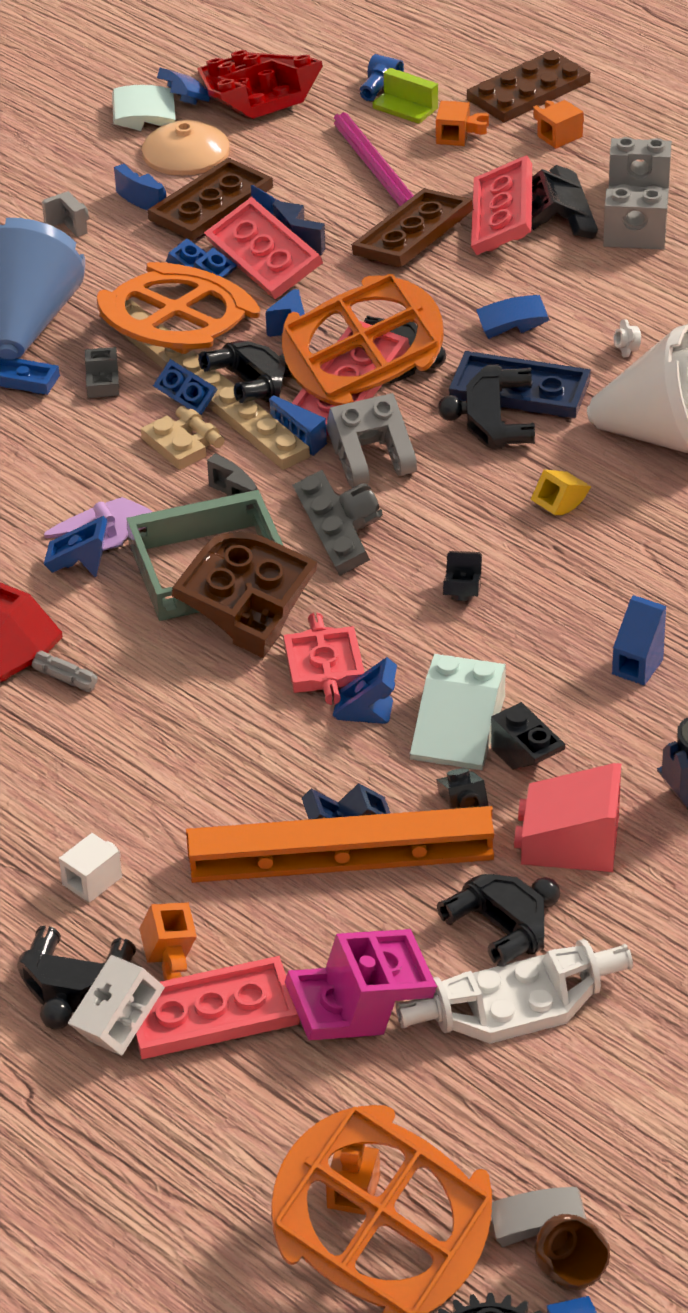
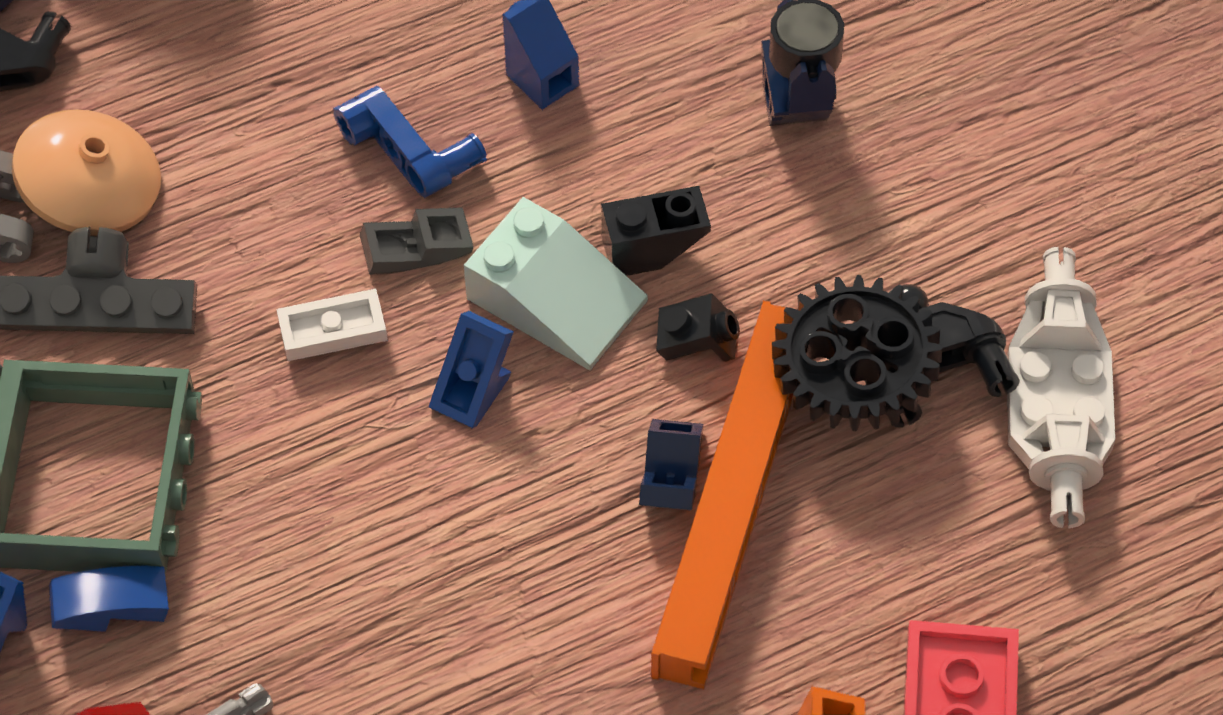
camera: 70 degrees left, 15 degrees up
(126, 594) = (95, 596): none -> blue slope
(245, 587) = (212, 431): reddish brown slope -> none
(323, 658) = (370, 399): coral plate -> none
(360, 984) = (1016, 541): dark pink bracket -> none
(372, 625) = (332, 324): none -> white plate
(422, 495) = (80, 187): none -> light nougat dish
(457, 640) = (424, 241): none -> dark grey slope
(463, 575) = (300, 196): black bracket -> none
(492, 861) = (857, 353): none -> black gear
(542, 596) = (426, 170): none -> blue beam
(559, 491) = (190, 37): yellow brick -> none
(571, 820) = (815, 221): coral slope -> none

